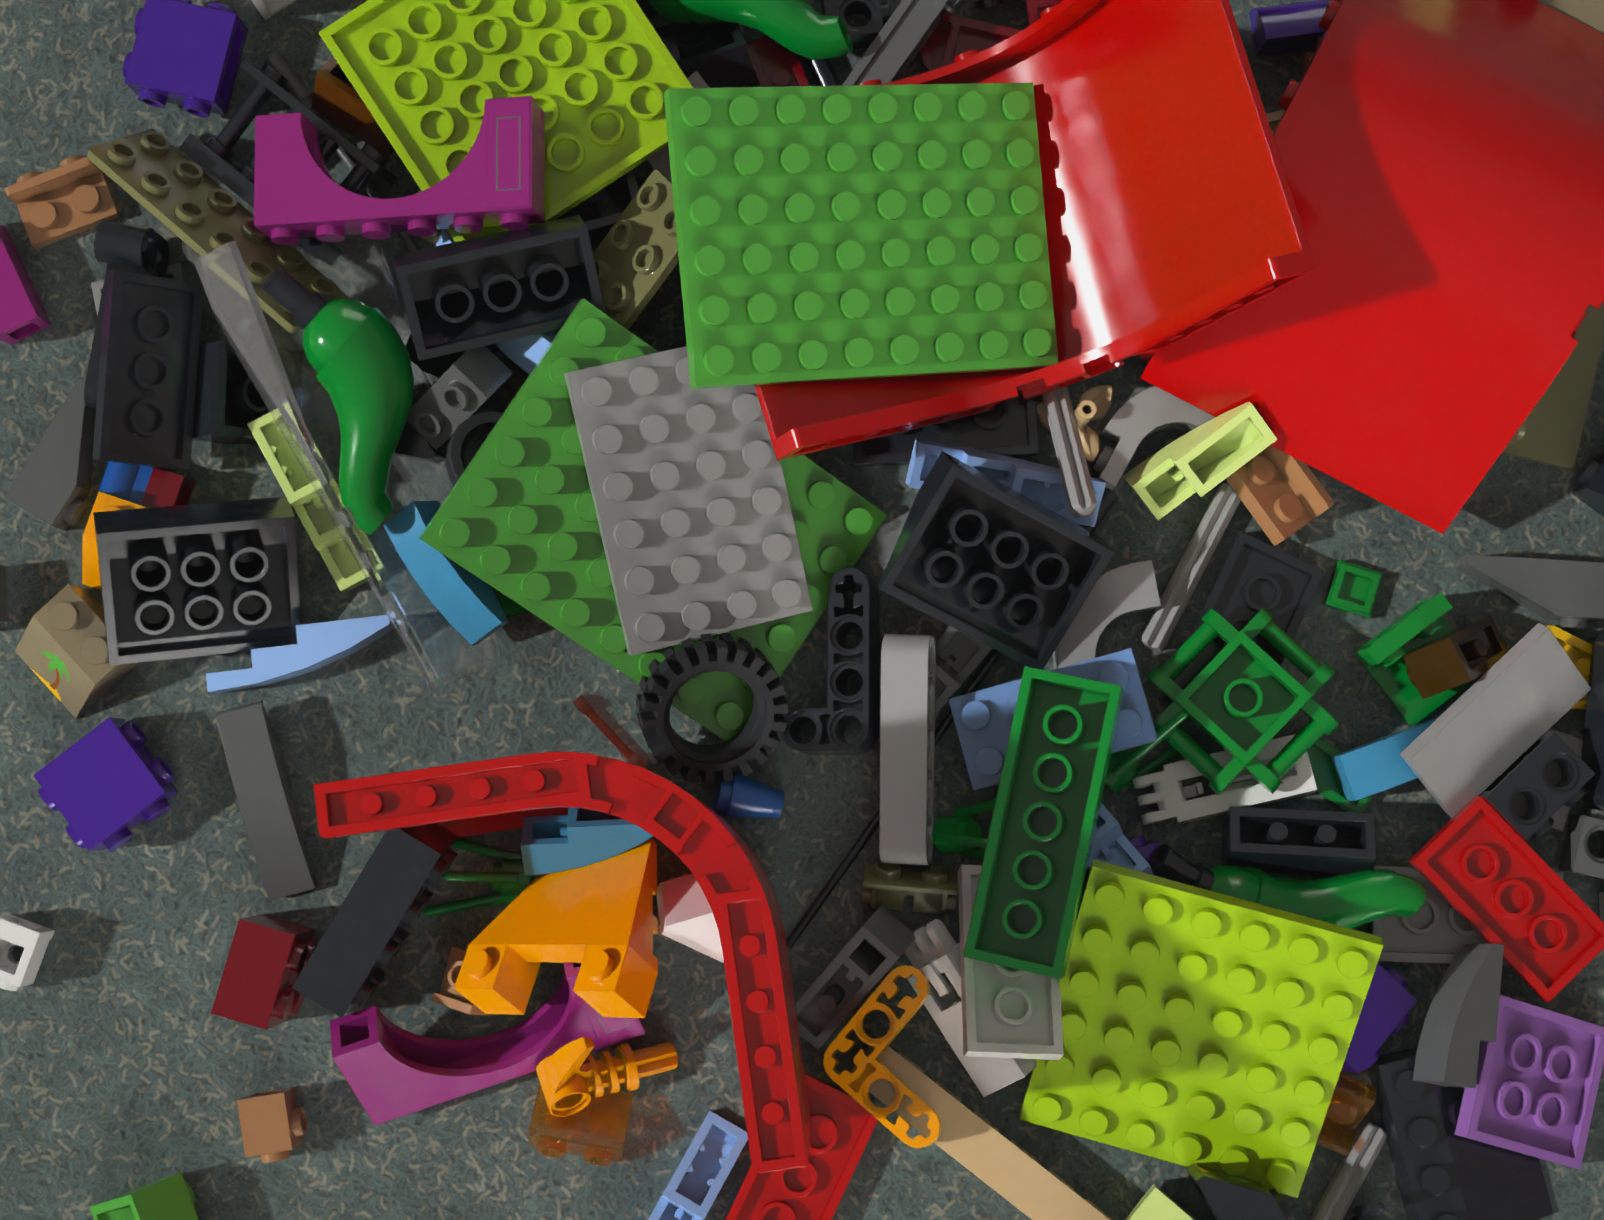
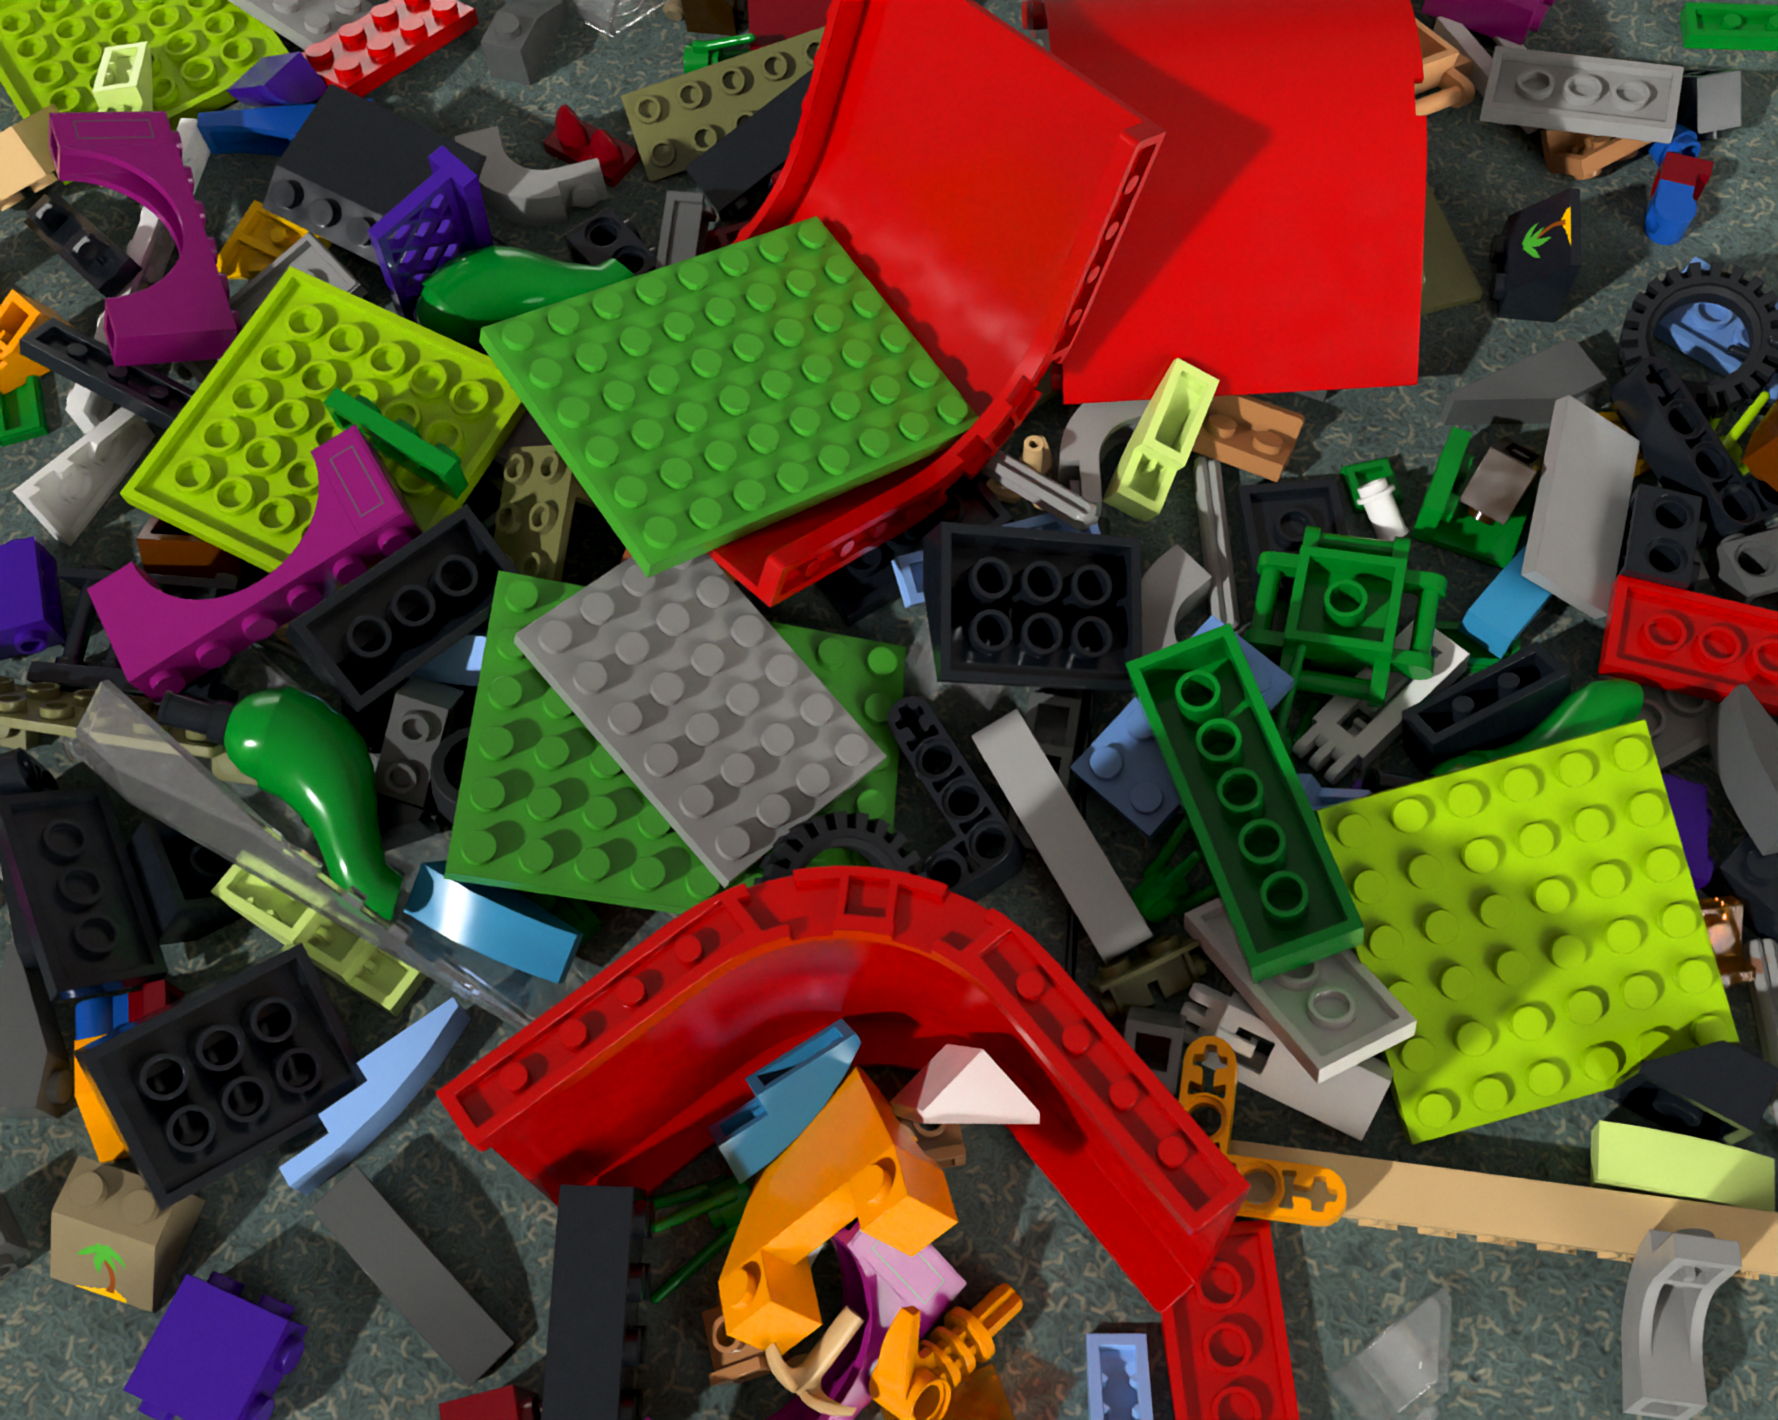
camera: 30 degrees left, 20 degrees down
(501, 1029) = (804, 1371): none -> tan plant
(563, 119) = (399, 442): none -> green plate
(1342, 618) = (1382, 509): none -> white pin

